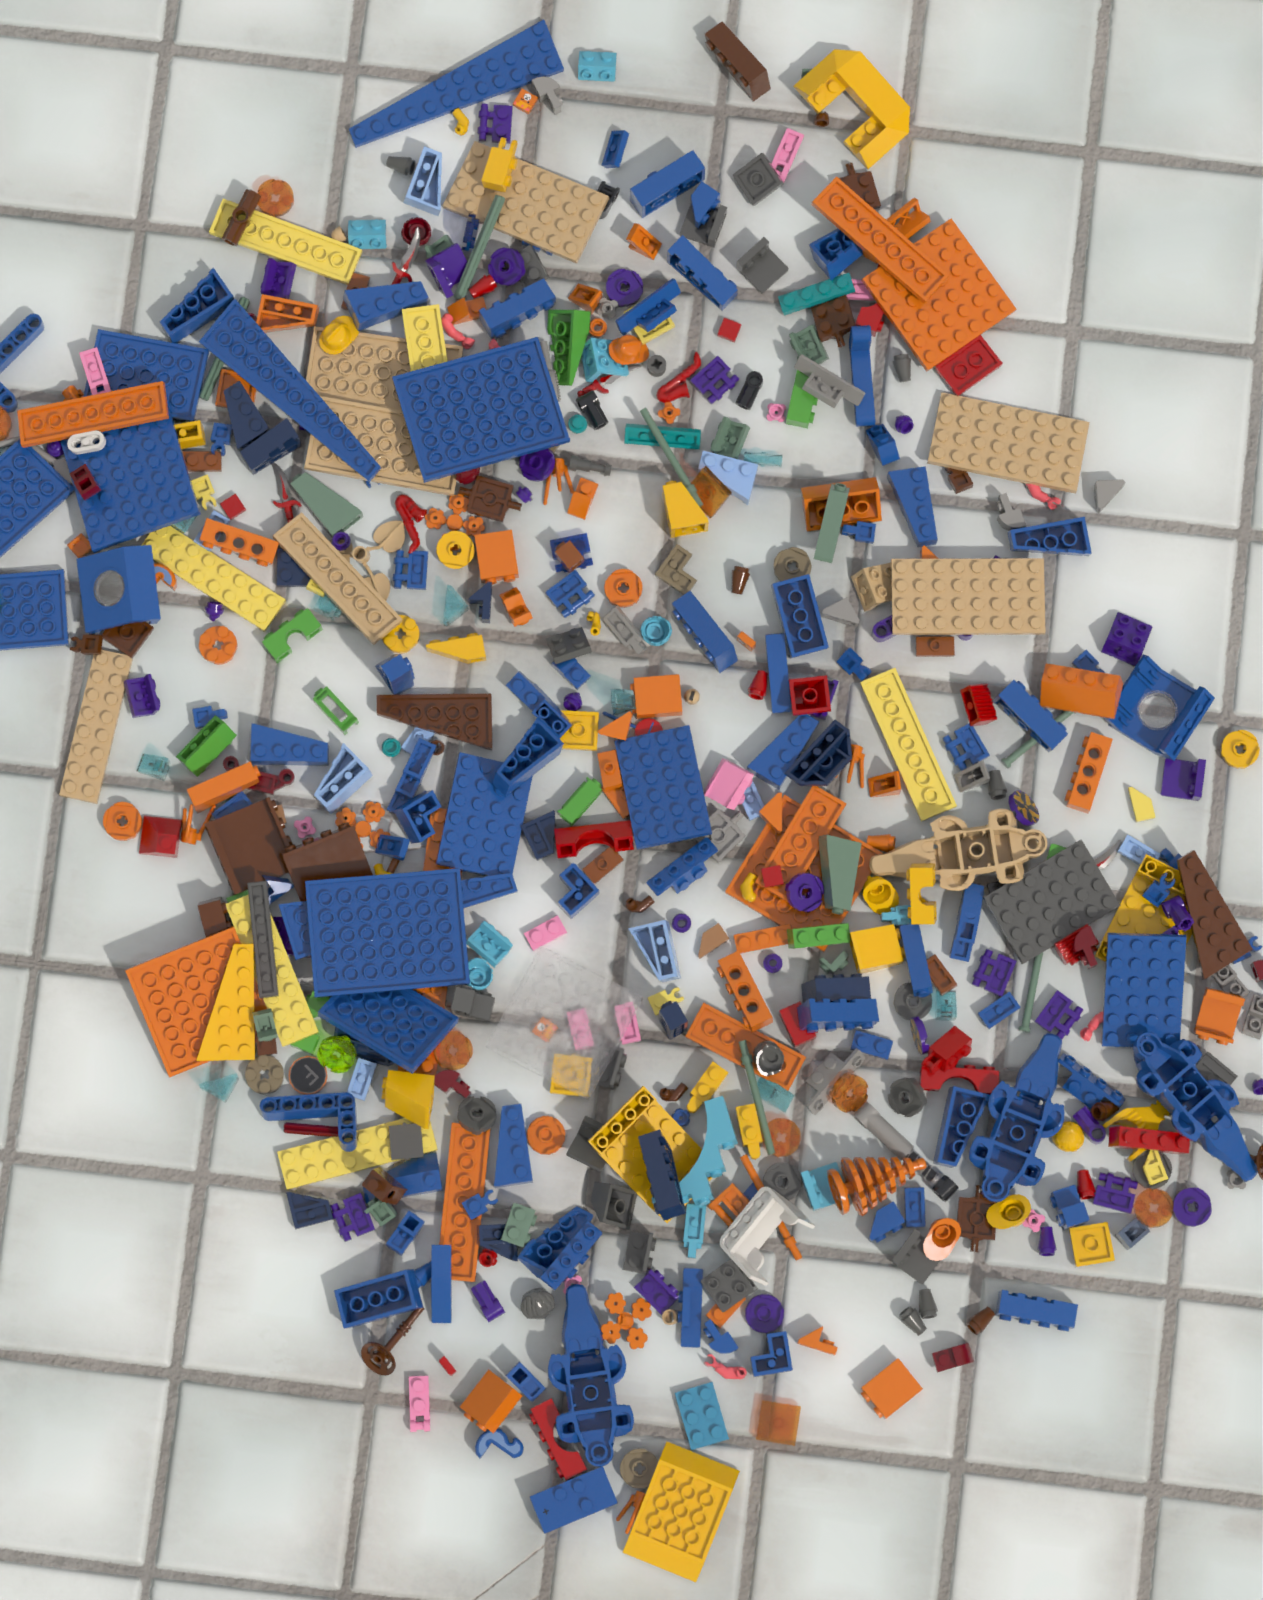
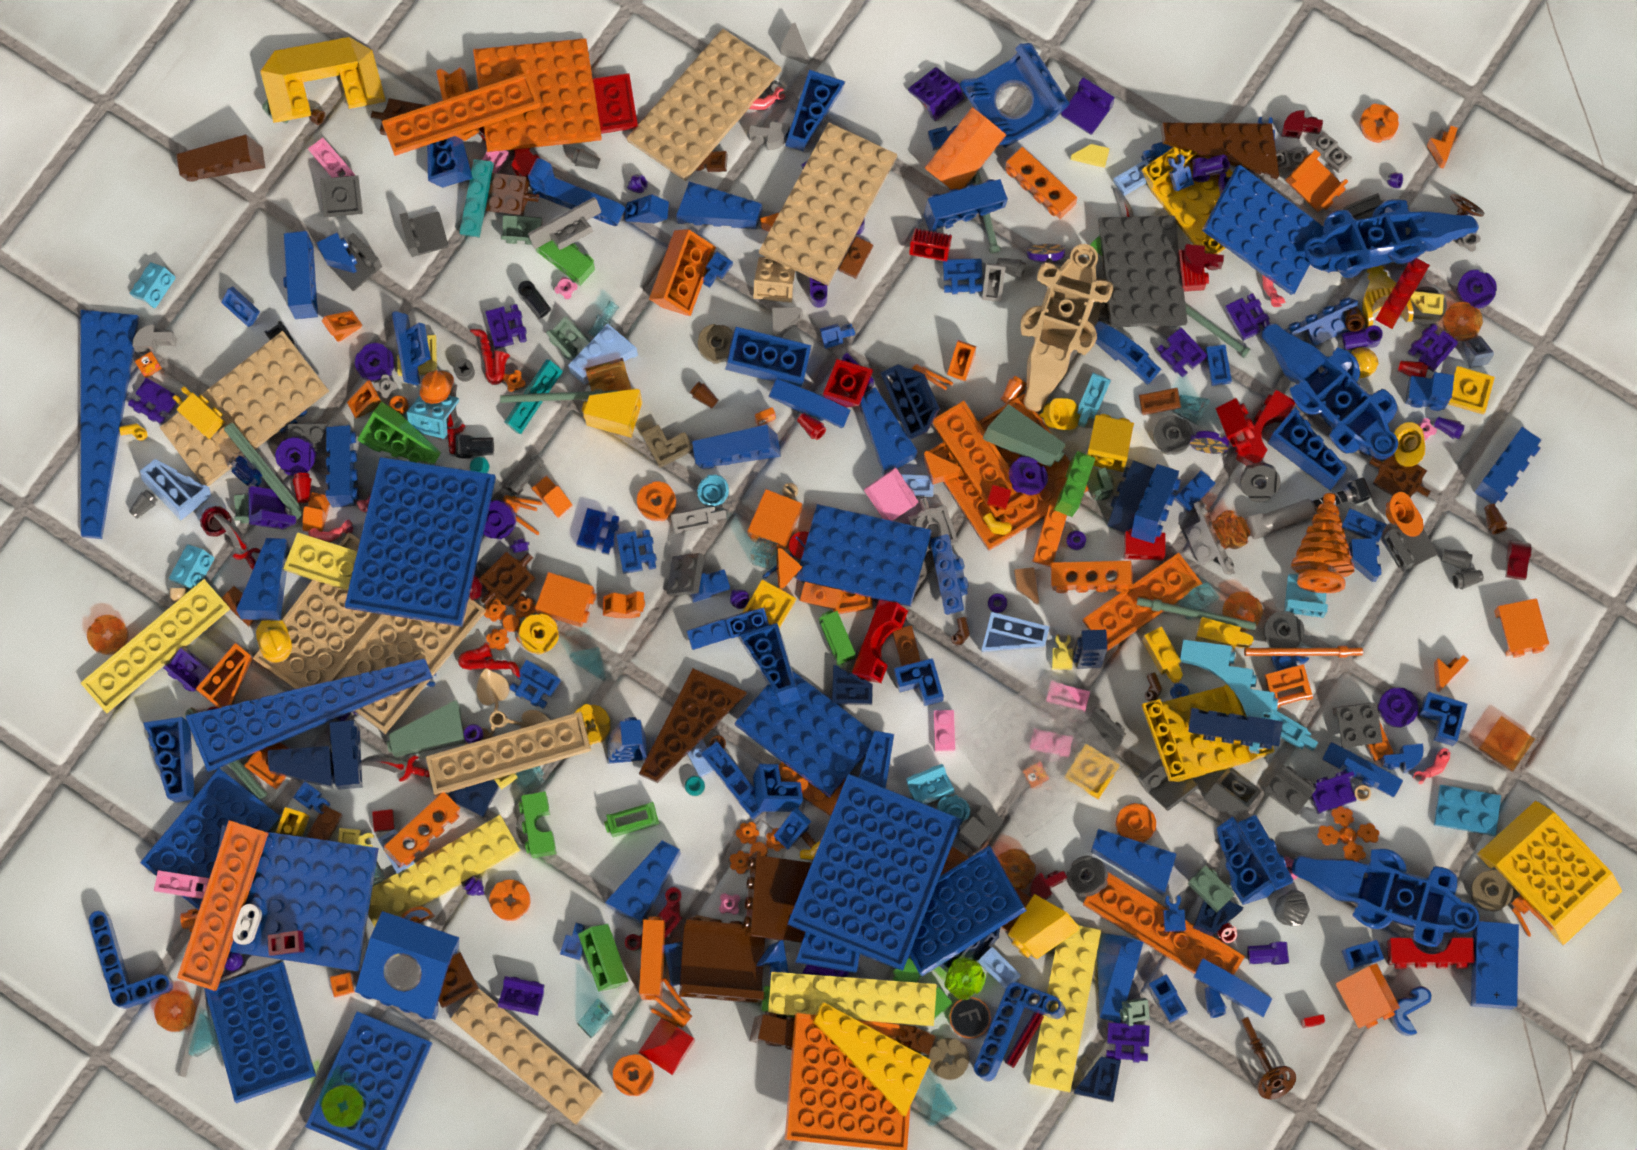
camera: 60 degrees left, 5 degrees down
(88, 644) = (444, 1023): reddish brown plate -> none
(245, 207) = (117, 681): reddish brown piece -> none
(263, 939) = (822, 992): dark grey tile -> none
(265, 1025) = (906, 1031): sand green bracket -> none
(342, 780) = (703, 844): light blue wedge -> none
(378, 1298) = (1220, 1053): blue brick -> none
(381, 1184) = (1115, 995): reddish brown torso -> none
(405, 1141) = (1080, 955): dark grey piece -> none
(419, 1402) = (1335, 1066): bright pink plate -> none
(461, 649) = (638, 673): yellow slope -> none
(484, 597) = (599, 629): dark blue slope -> none
(568, 556) = (601, 532): dark orange brick -> none
(596, 625) = (675, 542): yellow arm -> none
(701, 273) = (400, 287): blue wedge -> none
(729, 330) = (466, 291): red tile -> none
(755, 1226) = (1315, 672): white windscreen -> none
(768, 1058) = (1165, 584): dark grey hair -> none
(831, 522) = (698, 285): sand green slope -> none
(908, 744) = (934, 323): light yellow plate -> none
(916, 960) = (1139, 411): blue brick -> none
(921, 910) = (1068, 366): yellow arch -> none
(1239, 738) = (1086, 39): yellow plate -> none

